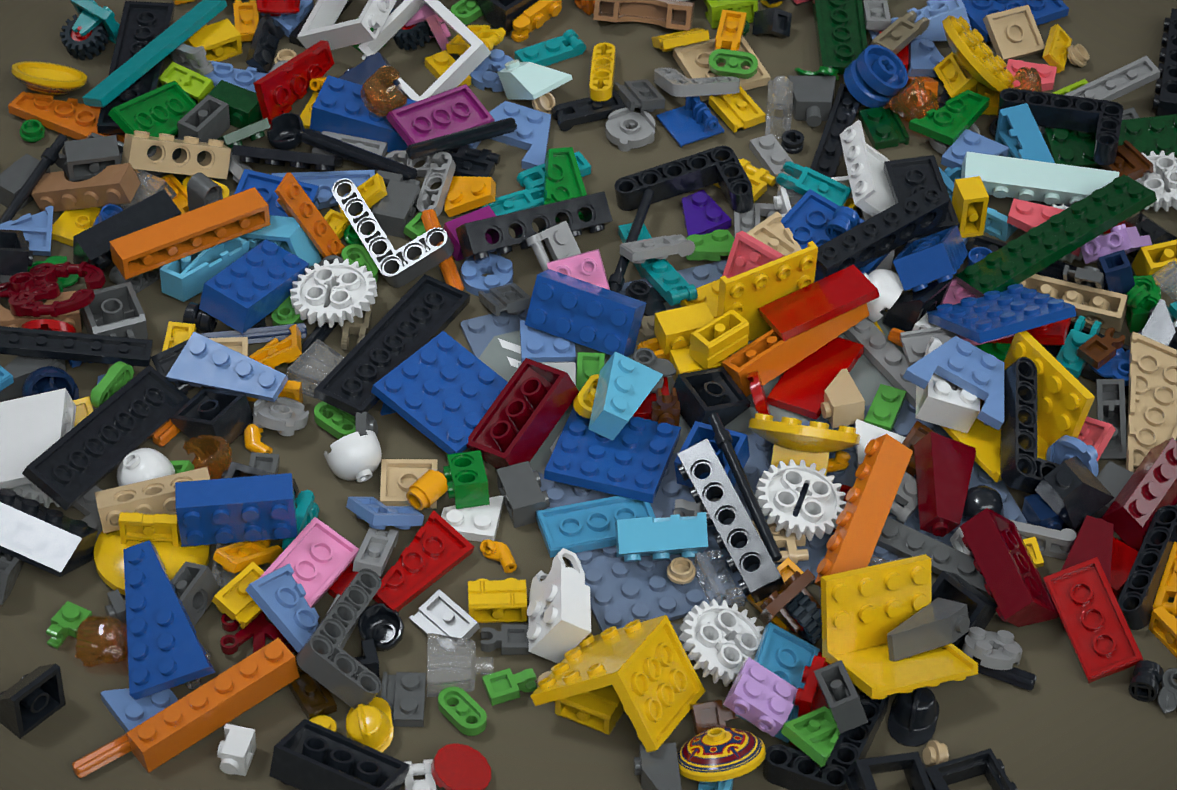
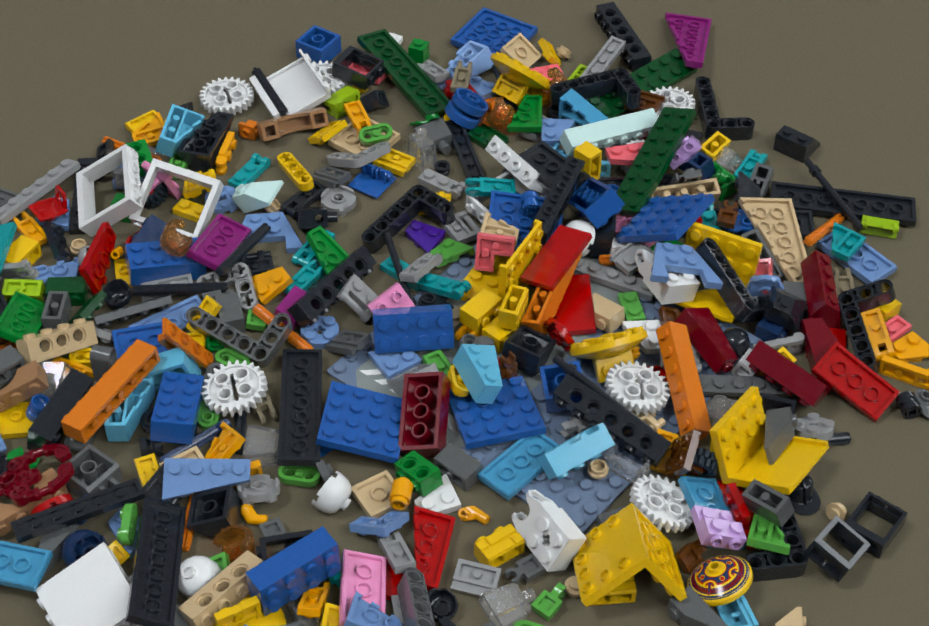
camera: 30 degrees left, 0 degrees up
(569, 132) = (306, 217): none -> black torso

